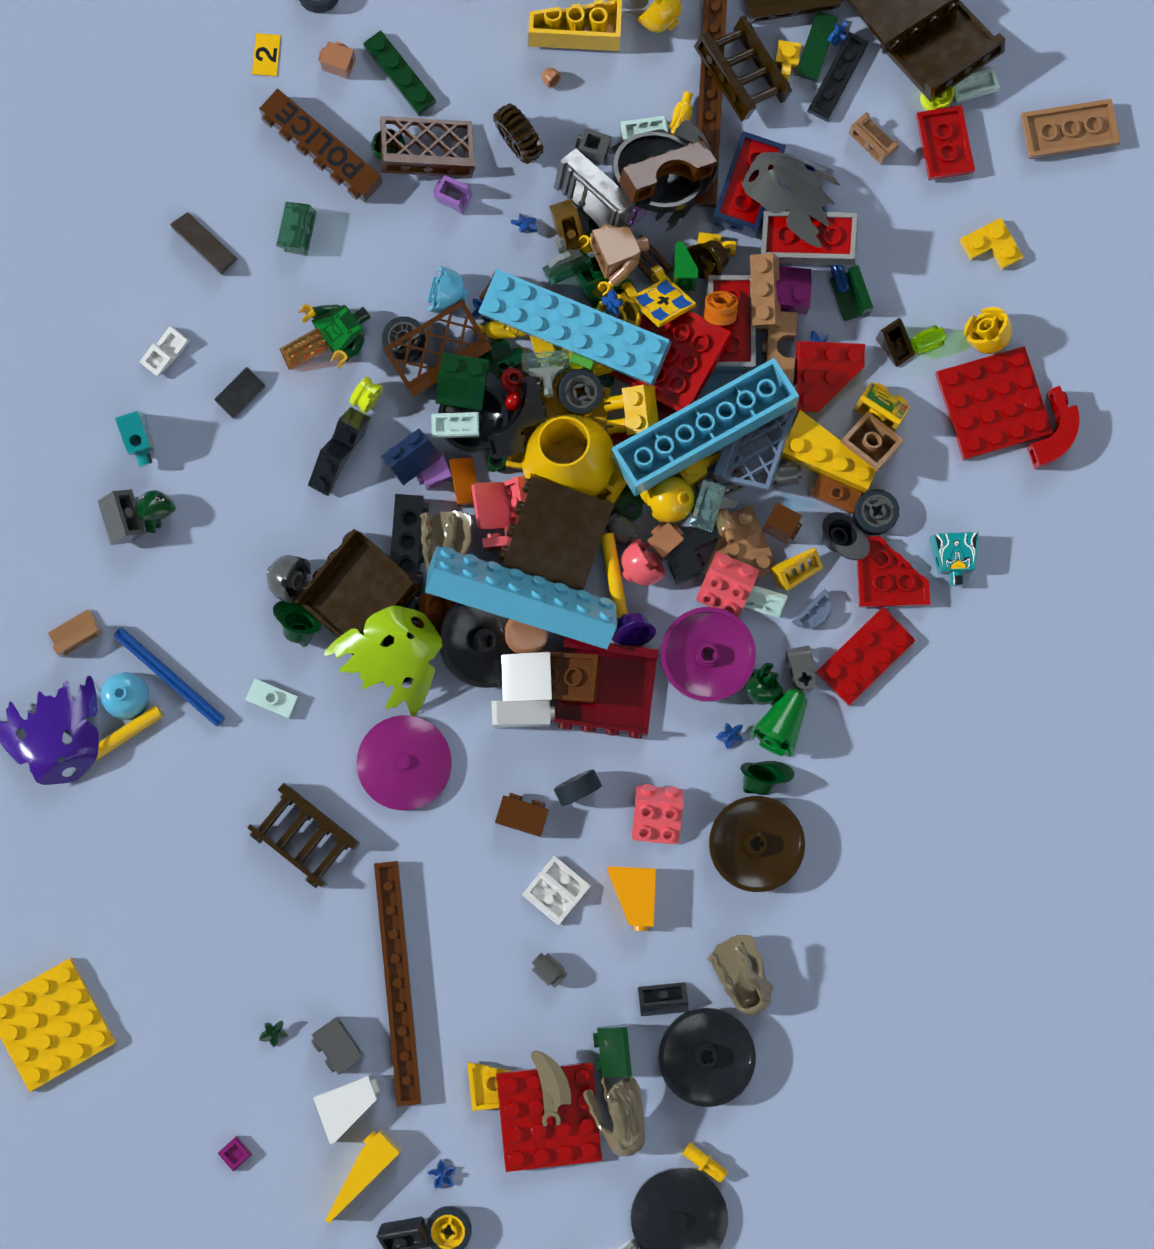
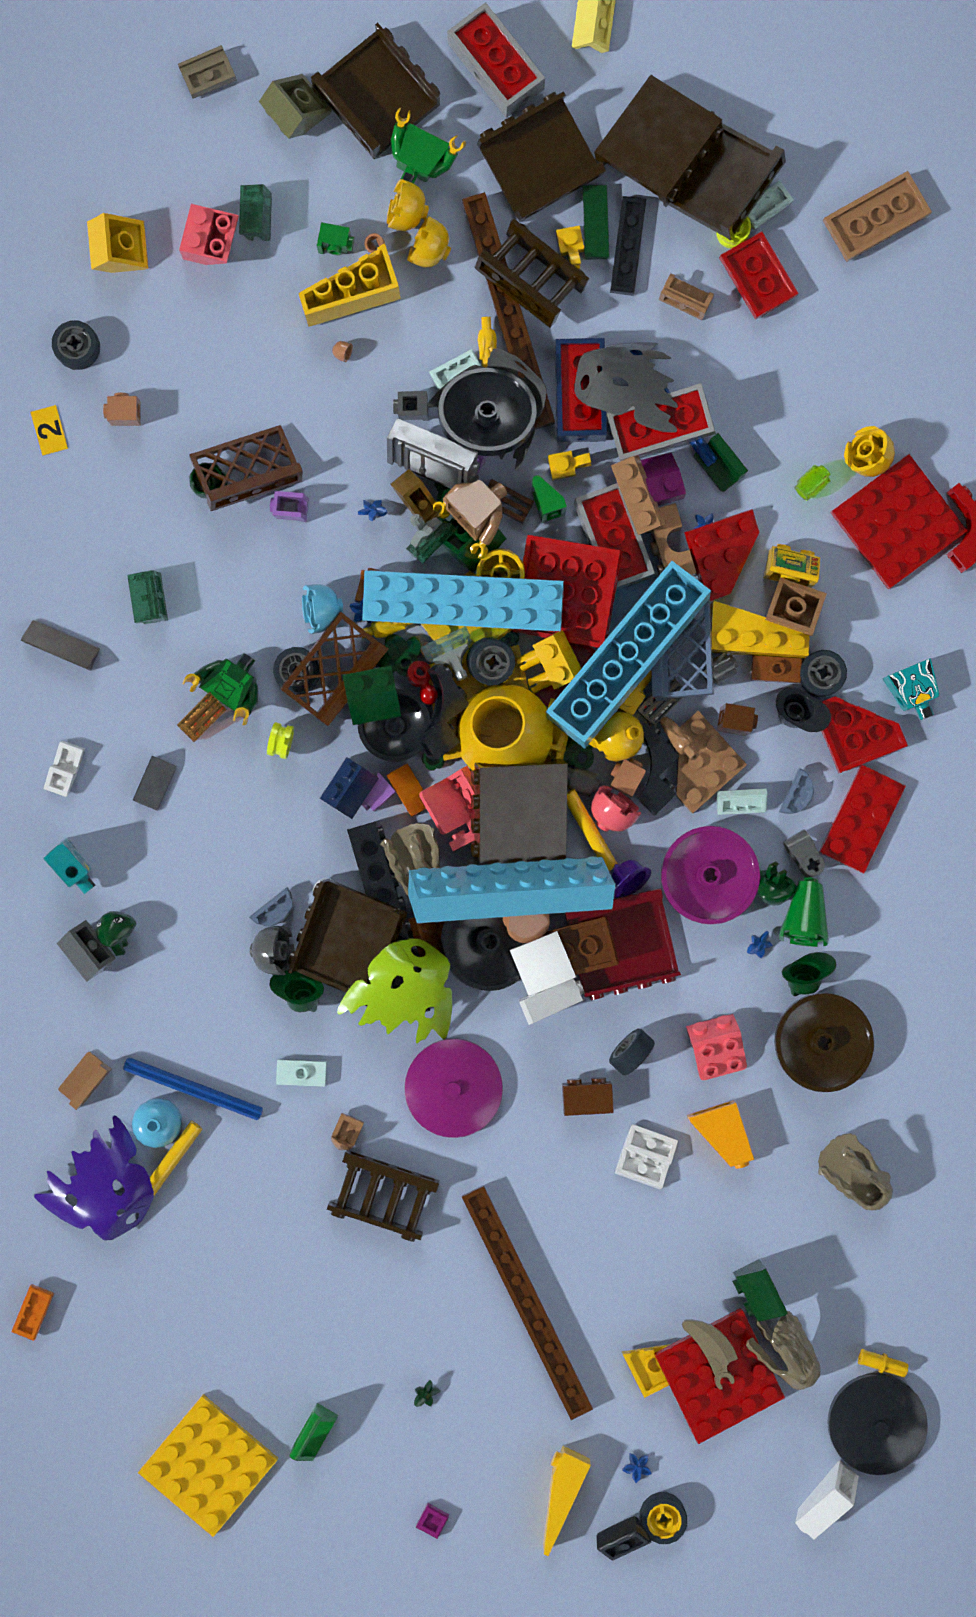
camera: 25 degrees left, 5 degrees up
(157, 1030) = (313, 1434): none -> green tile
(292, 766) = (346, 1132): none -> medium nougat plate
(304, 543) = (275, 910): none -> sand blue plate
(320, 145) = (139, 504): reddish brown brick -> none
(335, 453) = (274, 805): black arch -> none
(337, 1046) = (492, 1384): dark grey brick -> none
(345, 1104) = (521, 1436): white slope -> none
(399, 72) = (189, 400): dark green plate -> none
(455, 425) = (381, 740): light aqua plate -> none
(518, 133) = (333, 421): dark brown gear -> none
(549, 969) = (668, 1236): dark grey brick -> none
(582, 361) = (486, 632): bright green tile -> none
(612, 303) = (491, 562): blue plant -> none
(661, 300) = (538, 541): yellow flag -> none
(663, 999) = (786, 1222): black slope -> none
(691, 162) = (517, 390): arch -> none
(707, 1057) = (850, 1264): black dish -> none
(708, 505) = (659, 730): clear light blue piece -> none
(709, 258) = (569, 479): dark brown piece -> none
(720, 308) = (601, 529): orange wheel -> none
(727, 584) = (704, 798): coral bracket -> none
(782, 572) = (753, 764): yellow slope -> none
(838, 34) = (613, 202): blue plant -> none
(895, 342) = (782, 497): dark brown slope -> none
(994, 238) = (844, 355): yellow plate -> none

